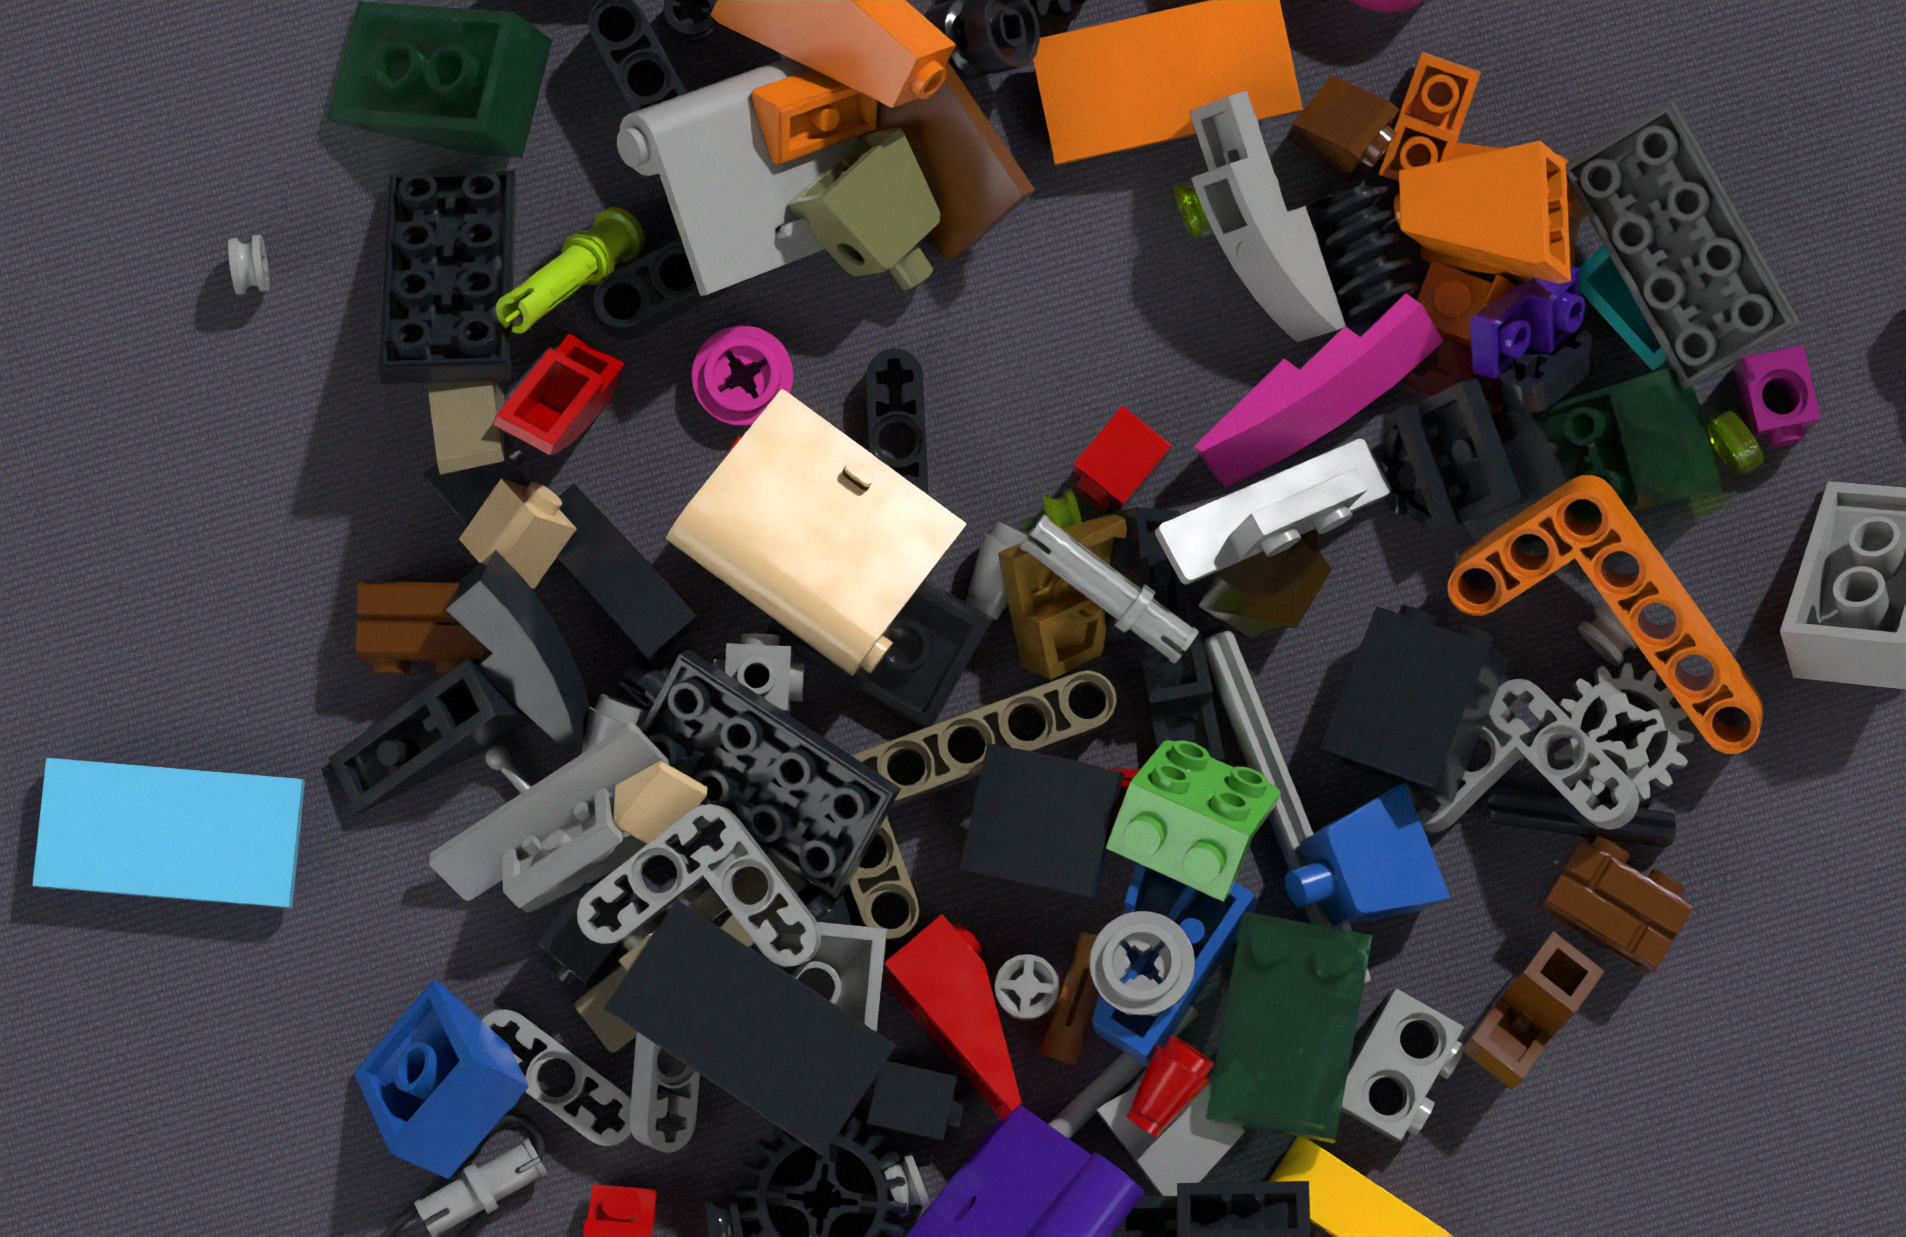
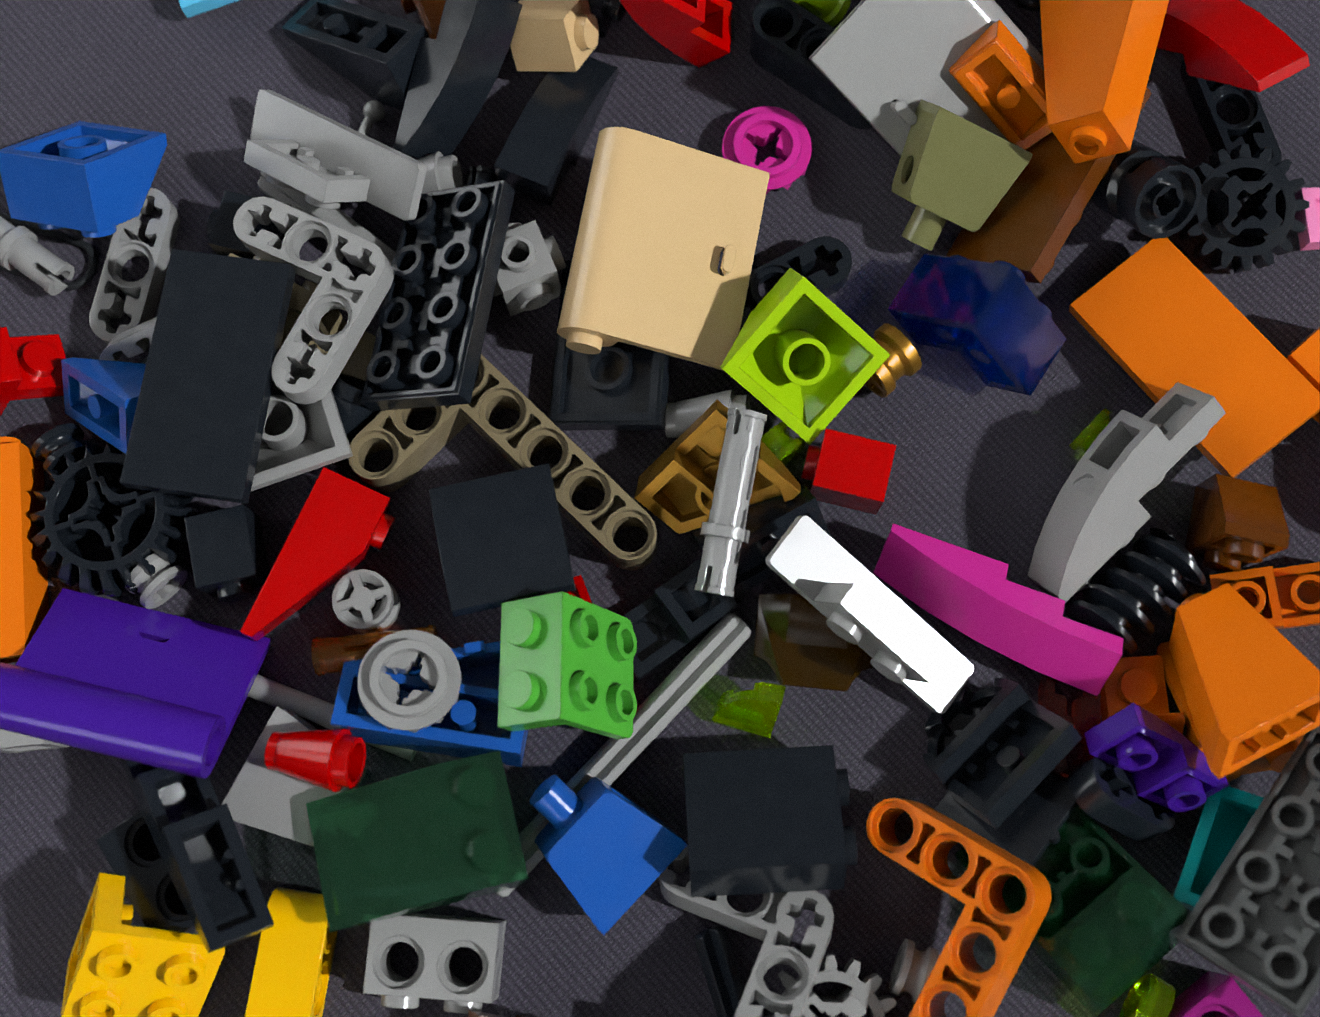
camera: 70 degrees right, 5 degrees down
(655, 800) = (373, 216): tan slope -> none
(707, 1145) = (103, 396): none -> blue slope
(989, 450) = (802, 356): none -> lime slope
(1025, 371) = (902, 360): none -> pearl gold wheel
(1031, 261) = (983, 315): none -> clear blue brick
(1305, 667) = (751, 709): none -> clear neon green tile

